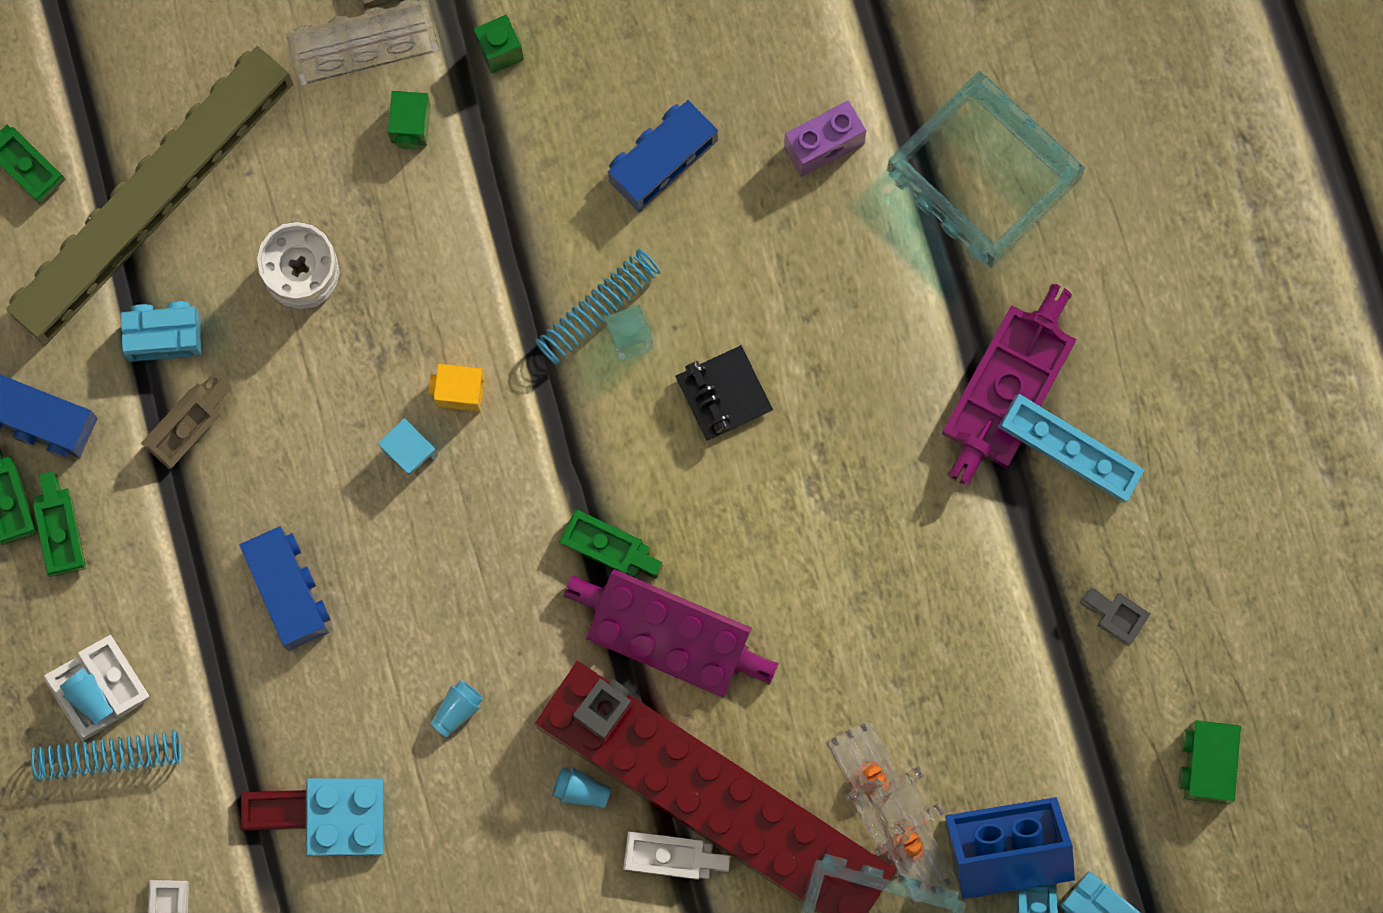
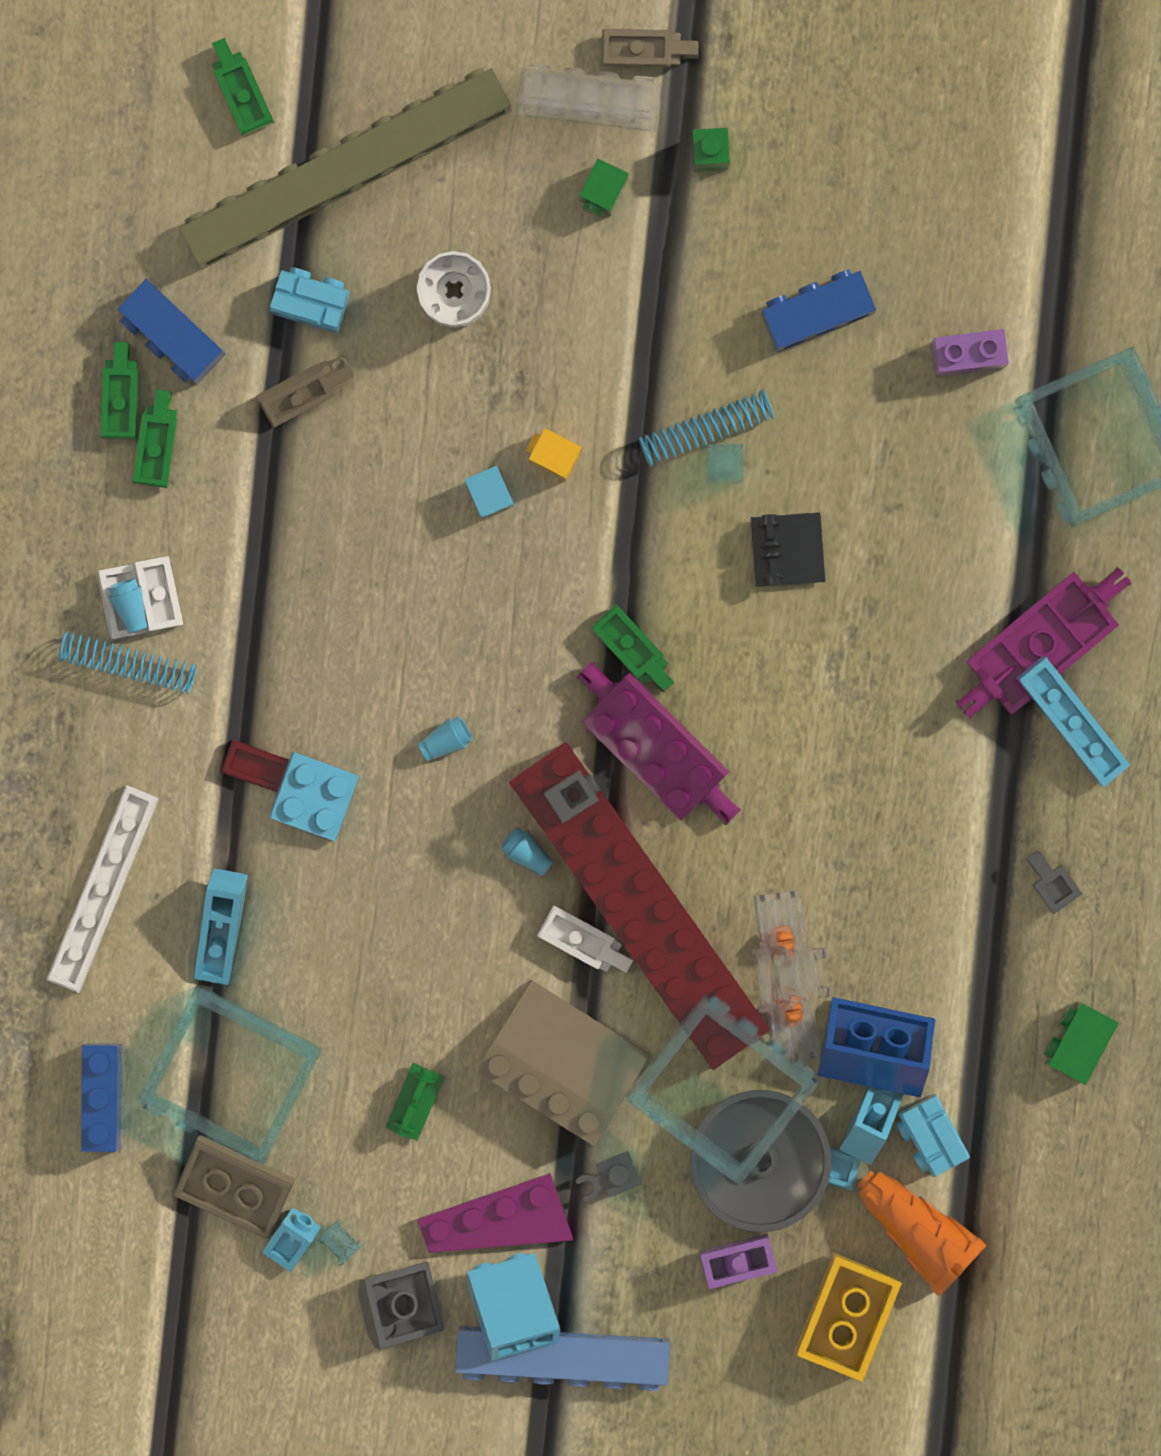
camera: 20 degrees right, 10 degrees up
(286, 587) = (336, 575): blue brick -> none

